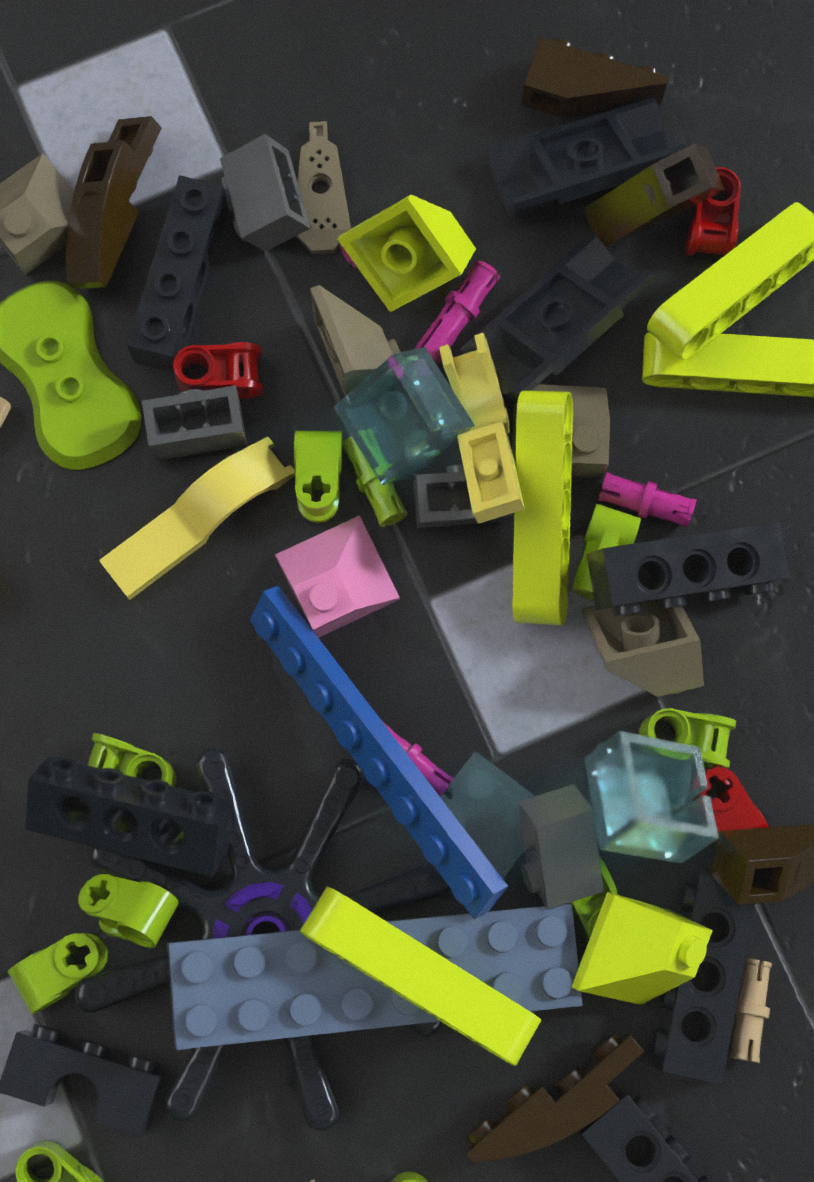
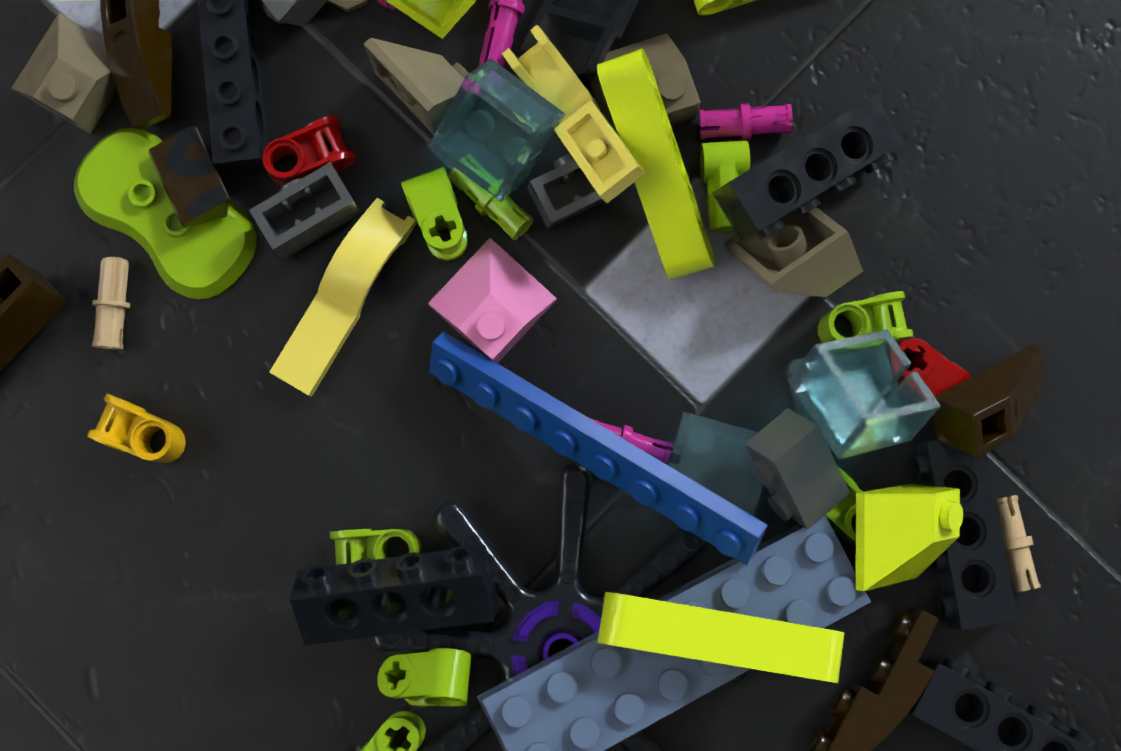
camera: 20 degrees left, 5 degrees up
(100, 351) = (190, 178): none -> dark brown slope

